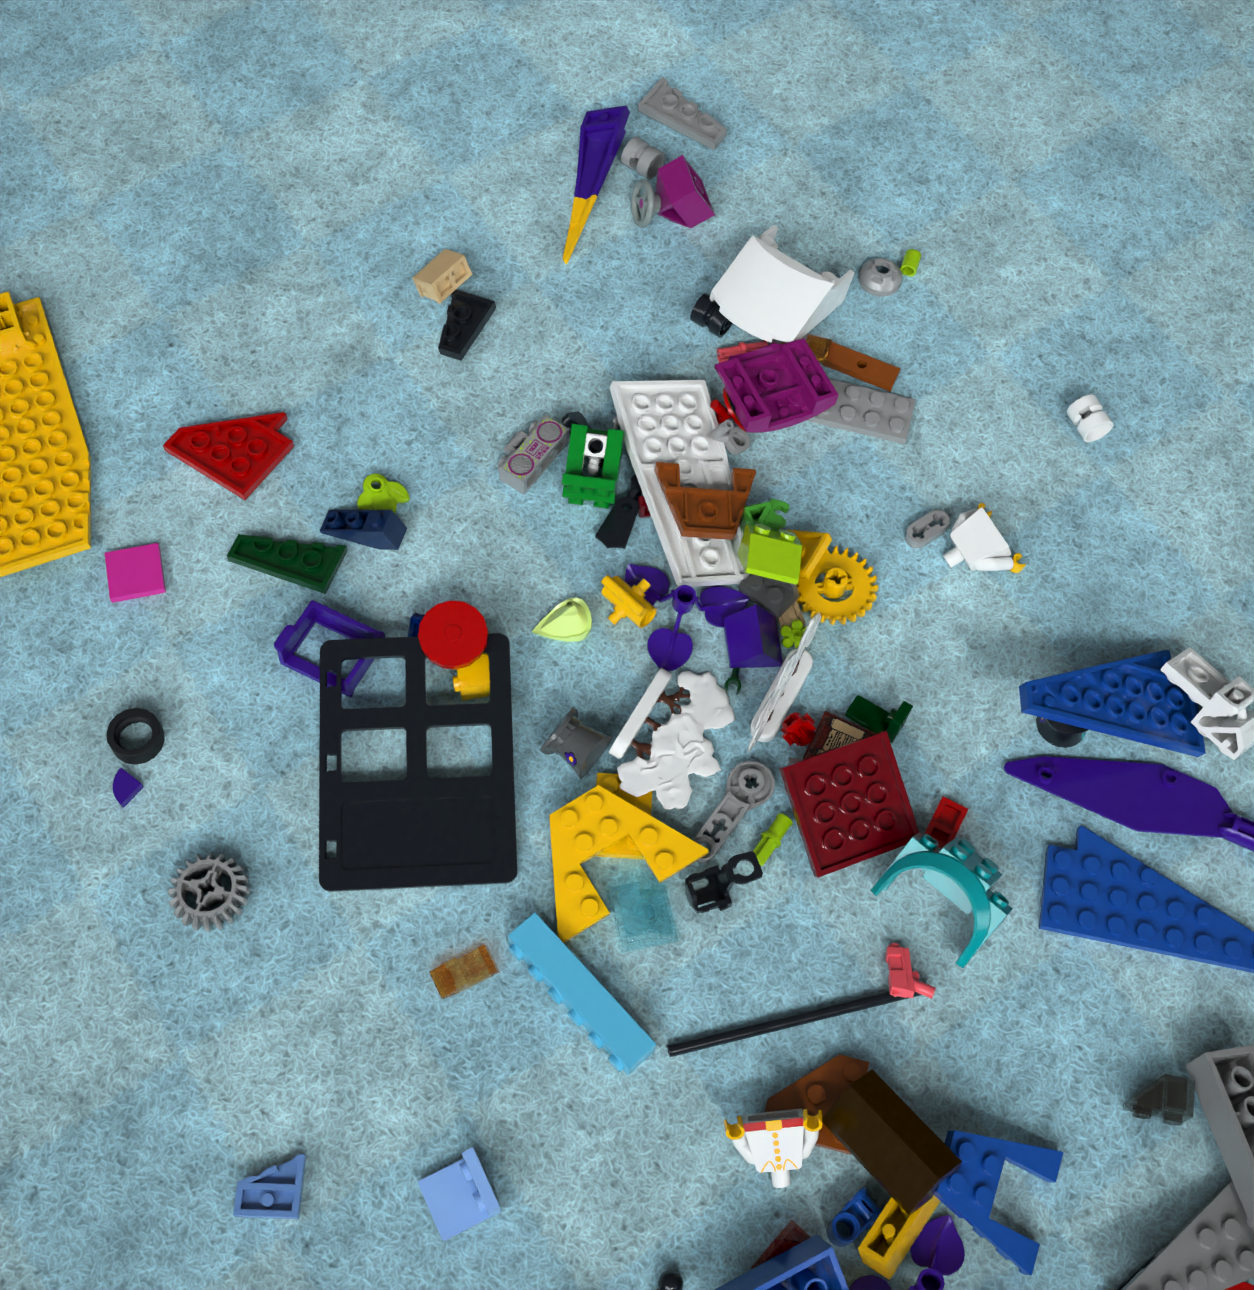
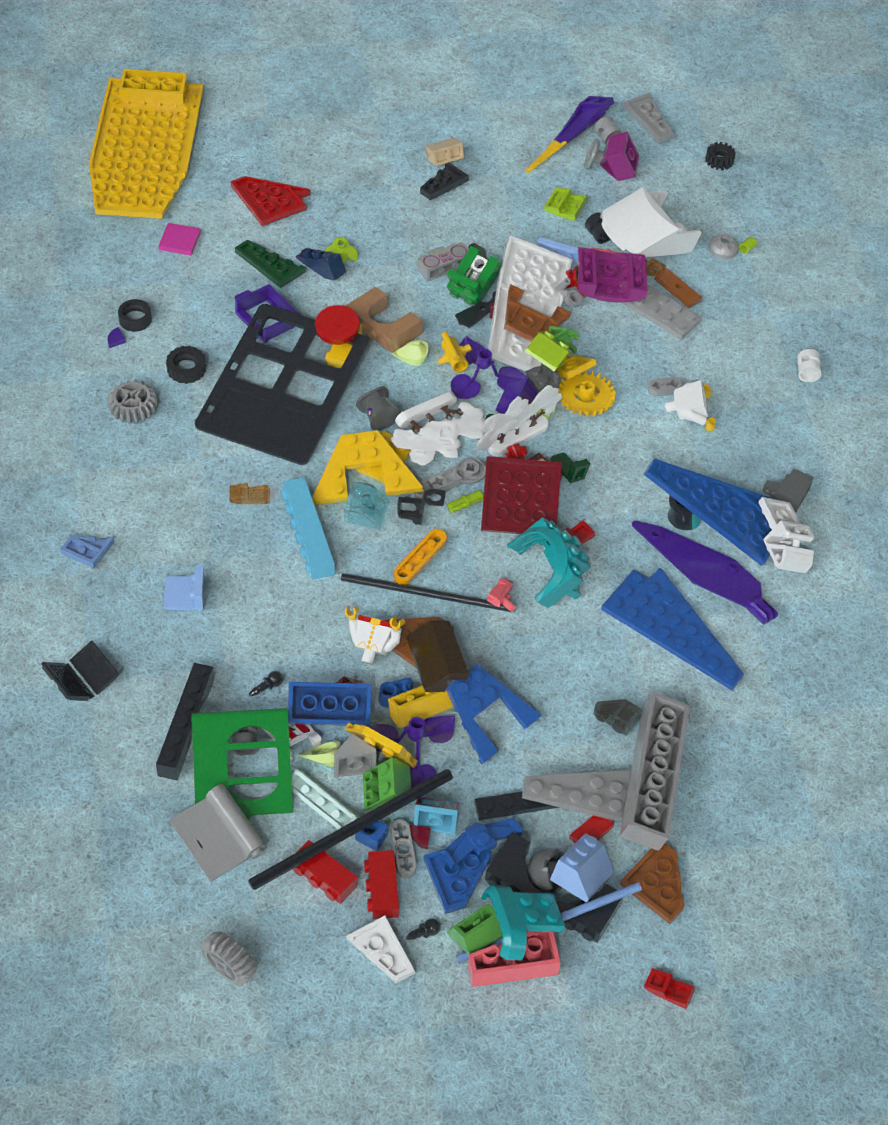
camera: 25 degrees right, 10 degrees down
(252, 768) = (186, 375): none -> black tyre
(525, 612) = (388, 335): none -> medium nougat arch
(644, 292) = (565, 203): none -> lime slope
(682, 371) = (559, 248): none -> light blue tile
(760, 964) = (420, 556): none -> light orange plate
(802, 149) = (723, 150): none -> black tyre
(1176, 622) = (791, 489): none -> dark grey hinge

